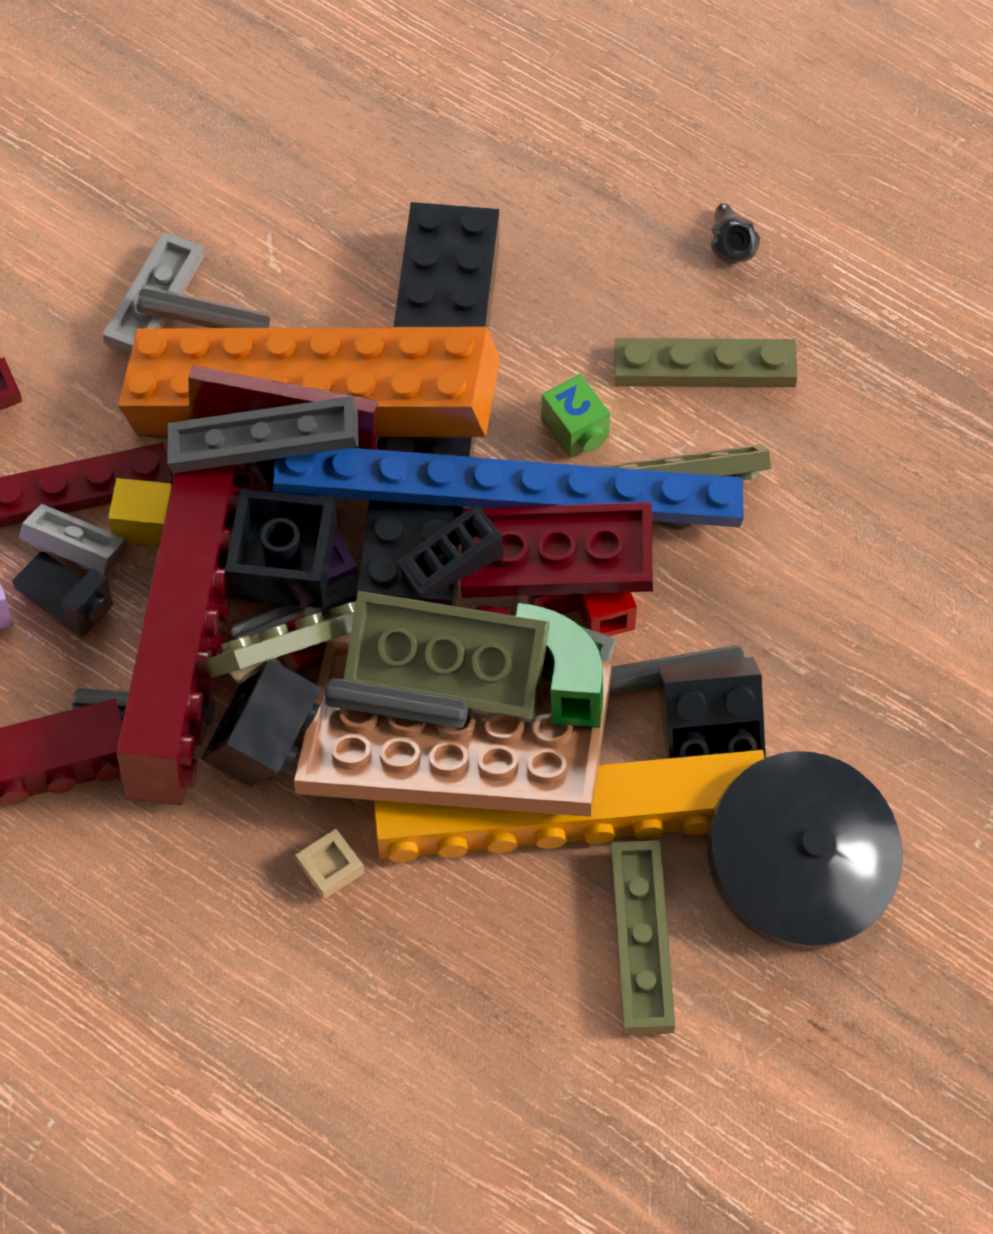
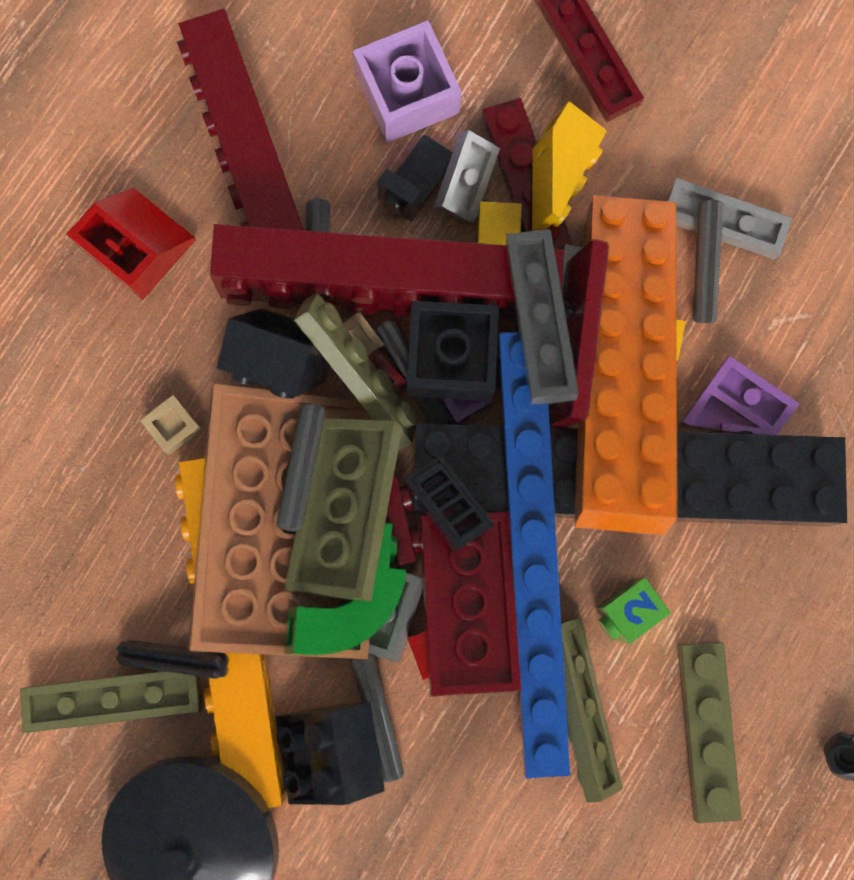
camera: 80 degrees right, 20 degrees up
(75, 437) = (559, 161): none -> yellow slope
(105, 894) = (131, 239): none -> red slope
(360, 292) = (740, 403): none -> medium lavender wing
(599, 857) = (172, 659): none -> black axle

